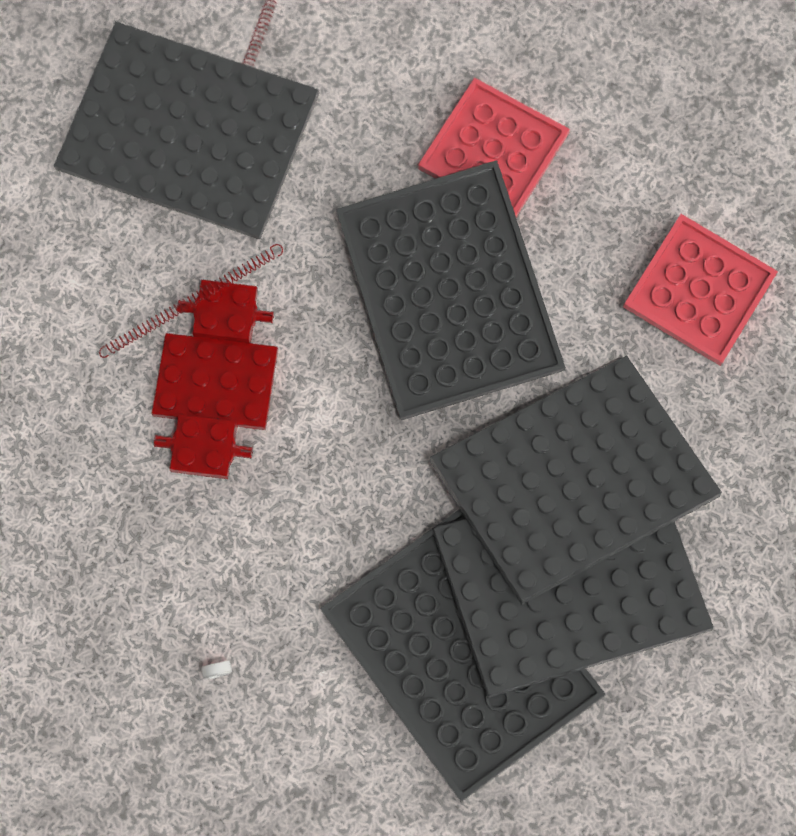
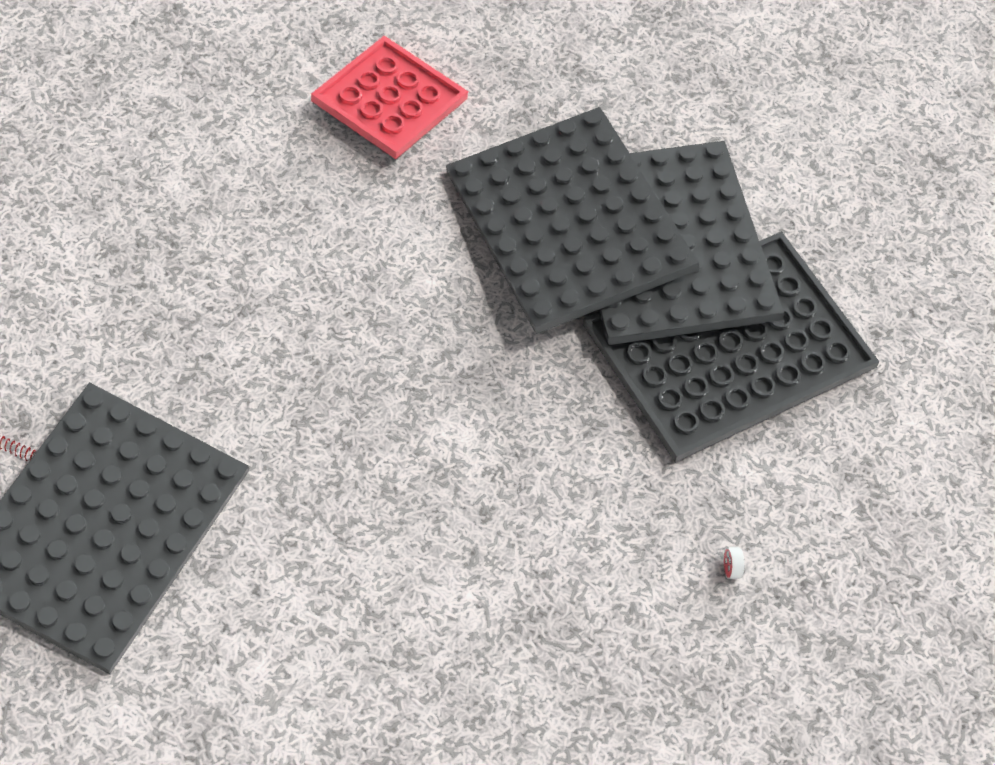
camera: 90 degrees left, 15 degrees down
(191, 302) = (317, 535): red piece -> none
(215, 381) = (408, 530): red piece -> none
(450, 290) = (349, 296): dark grey plate -> none
(493, 128) = (198, 240): coral plate -> none

